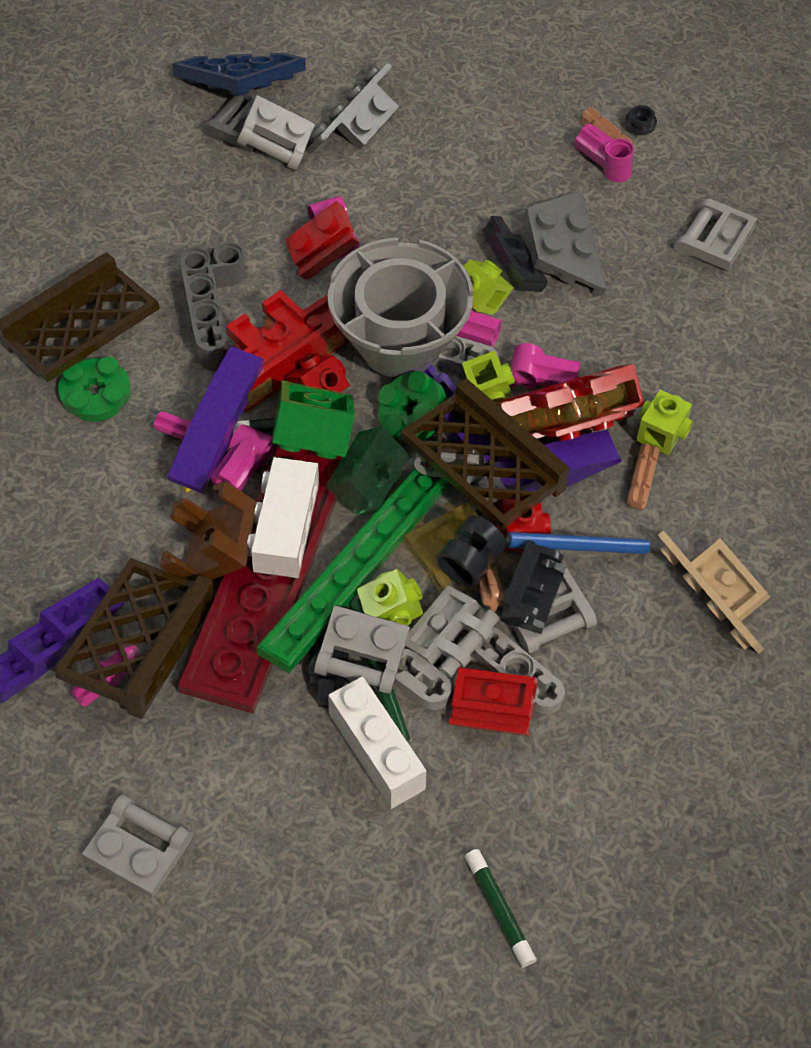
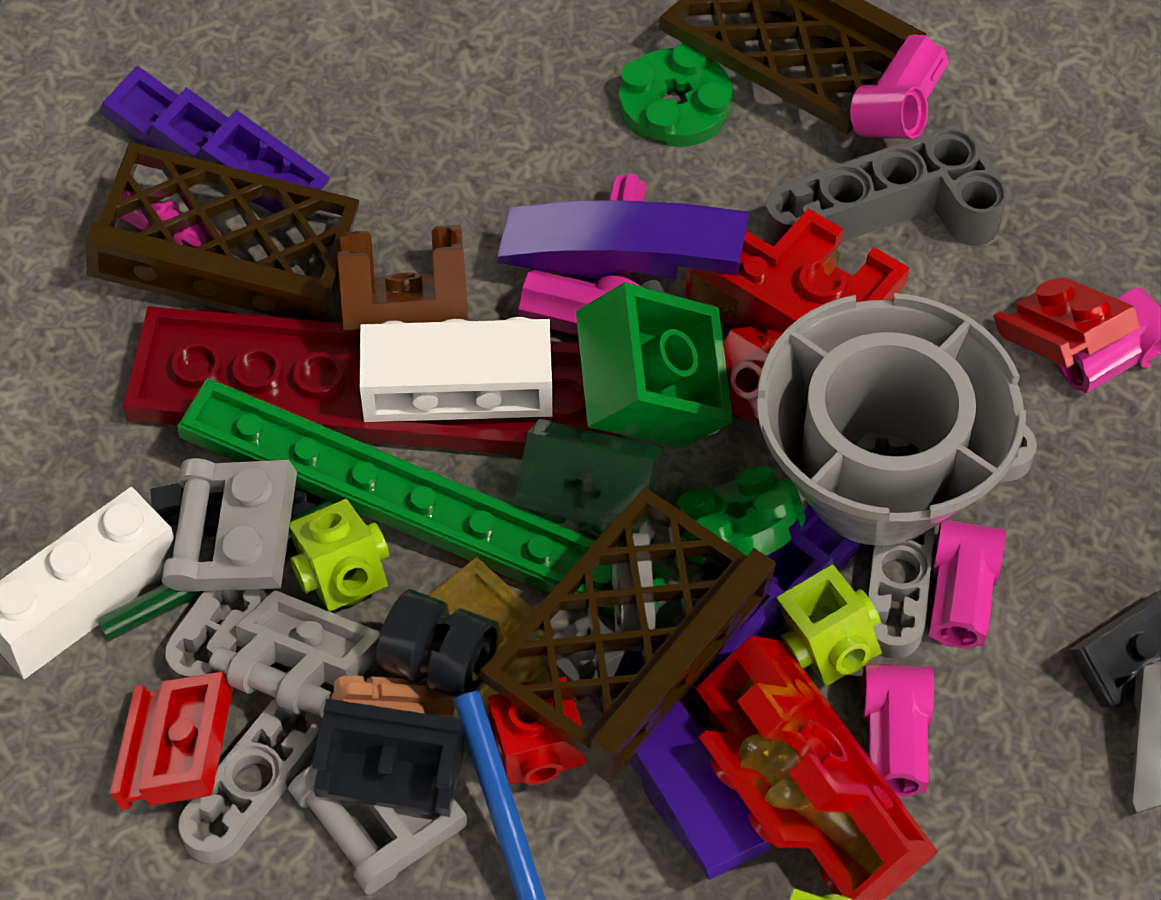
camera: 80 degrees right, 0 degrees up
(152, 273) = (899, 100): none -> dark pink piece
(488, 286) = (1050, 587): lime brick -> none

